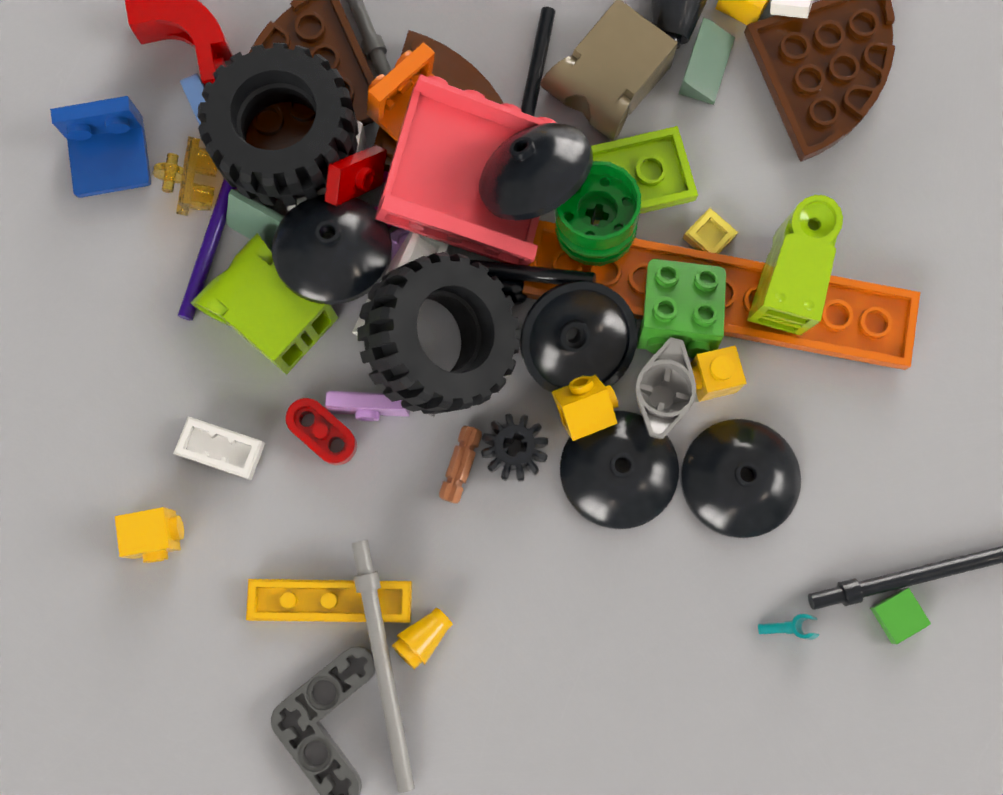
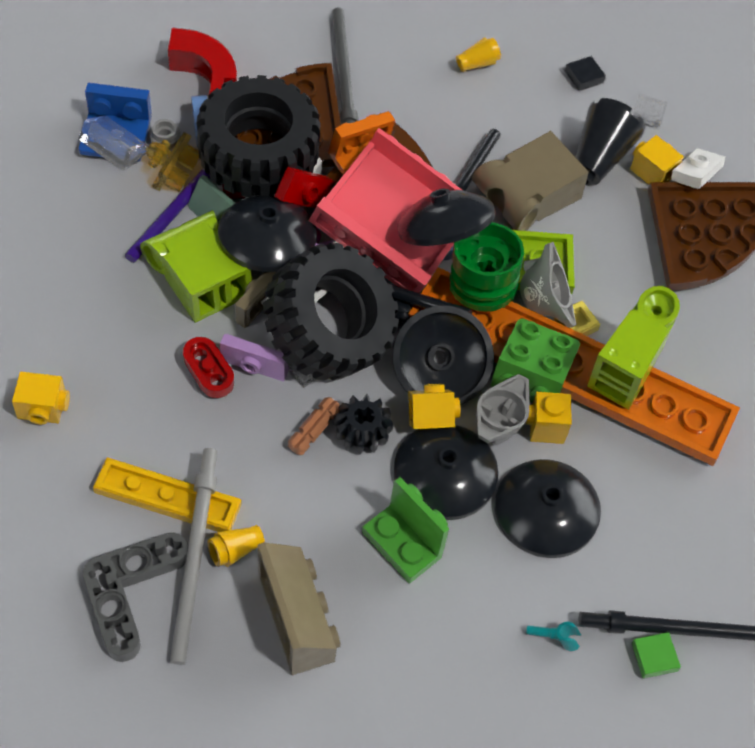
camera: 10 degrees right, 20 degrees down
(109, 172) = (112, 141): none -> clear slope
(163, 130) = (165, 130): none -> light grey plate
(219, 448) = (121, 355): white plate -> none
(343, 322) = (250, 305): none -> dark tan plate
(515, 697) = (297, 607): none -> dark tan slope
(602, 568) = (408, 532): none -> bright green bracket
(670, 212) = (546, 287): none -> light grey hat
(707, 62) = (610, 200): sand green slope -> none

